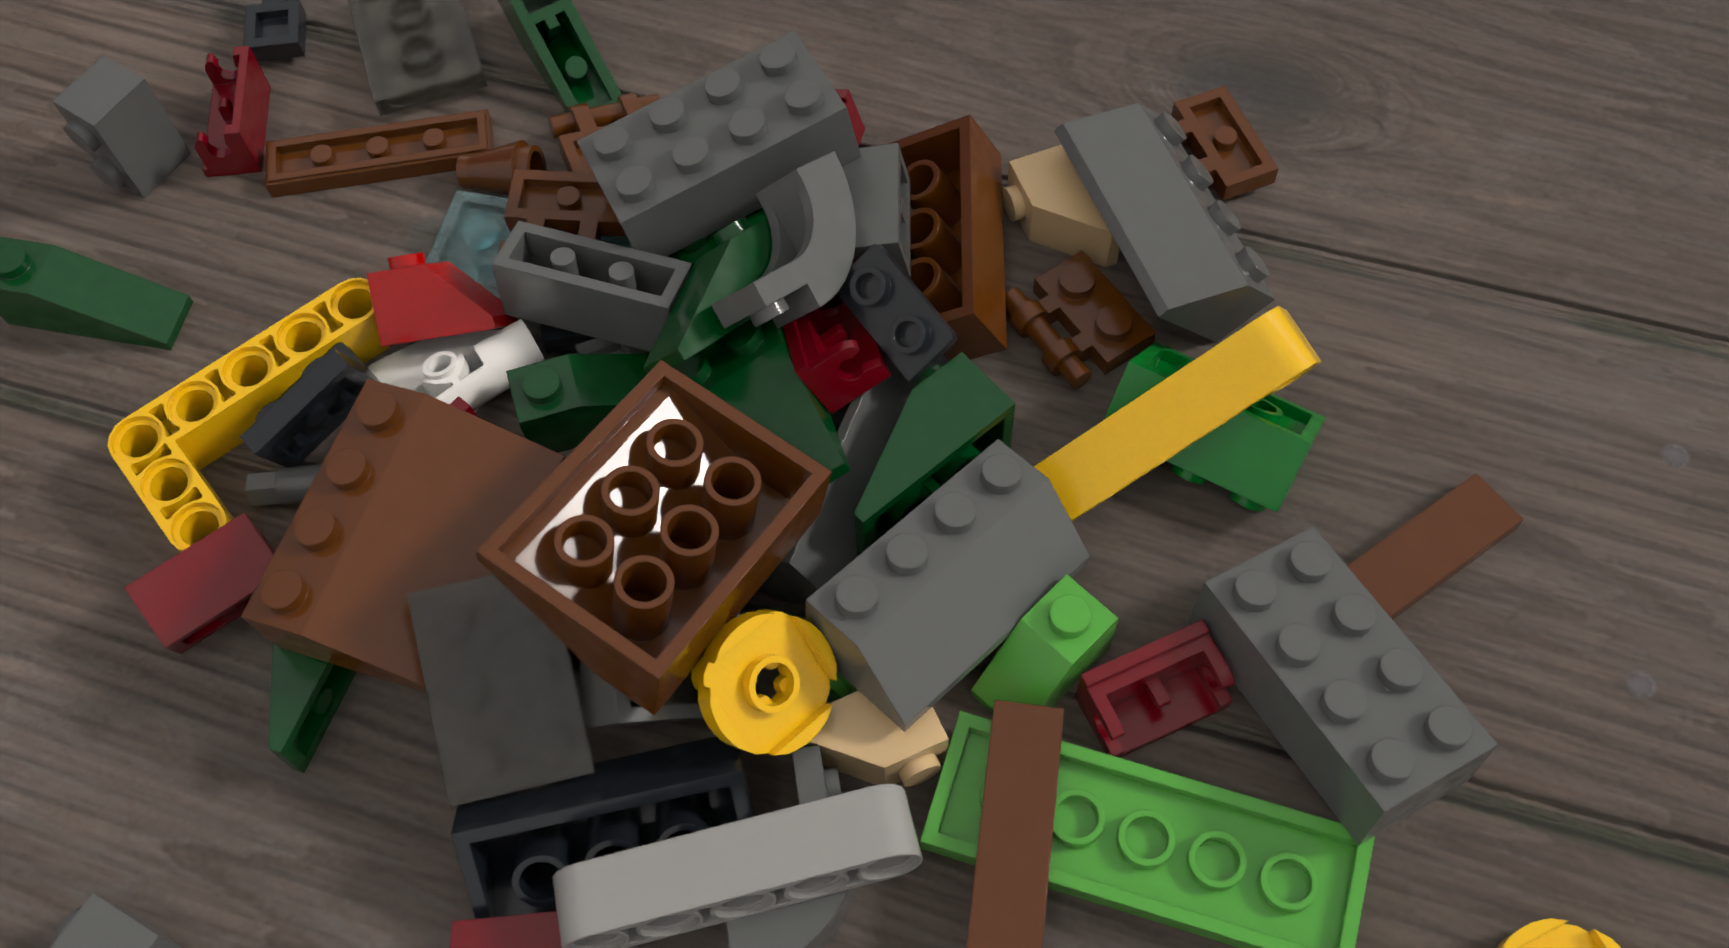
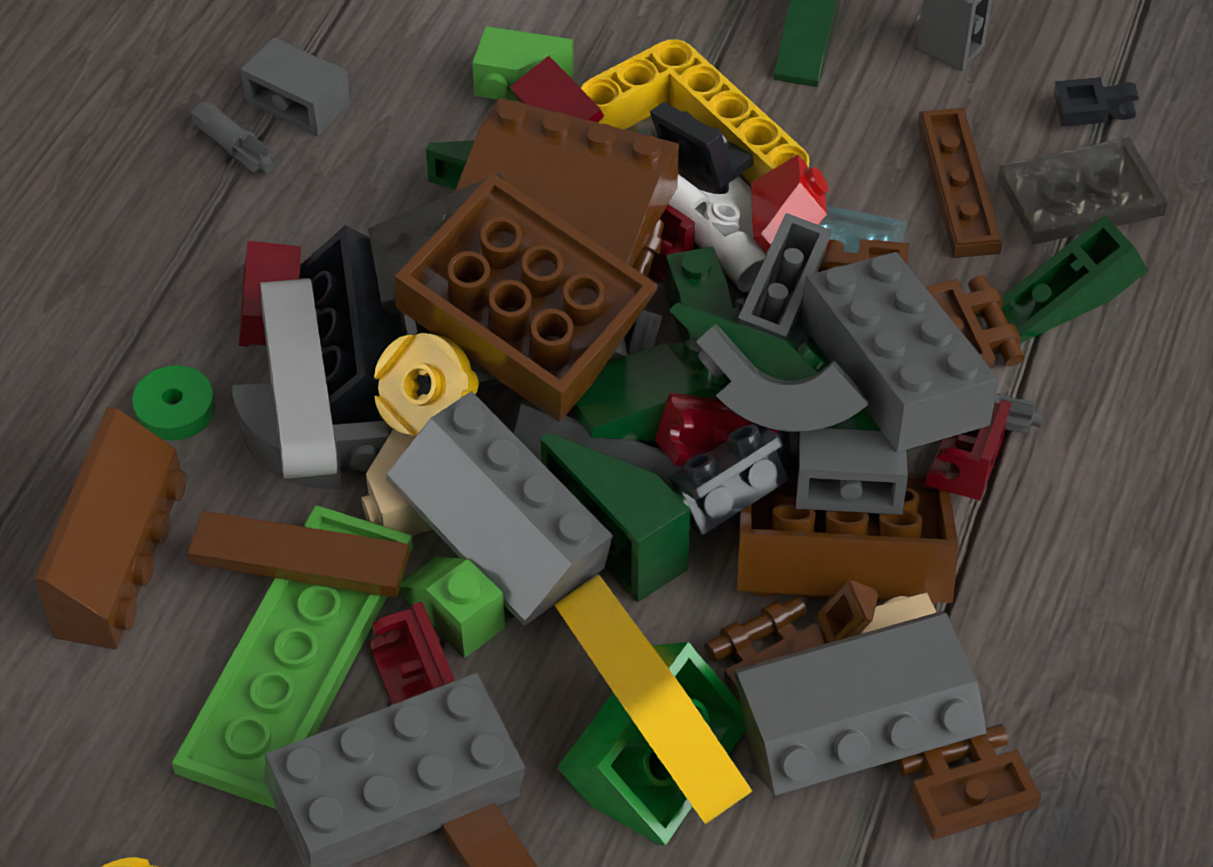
camera: 90 degrees right, 10 degrees down
(99, 656) = (510, 54): none -> bright green slope
(235, 117) = (989, 89): dark red hinge -> none
(495, 167) = (934, 255): reddish brown cone -> none
(1040, 237) = (848, 611): none -> reddish brown slope

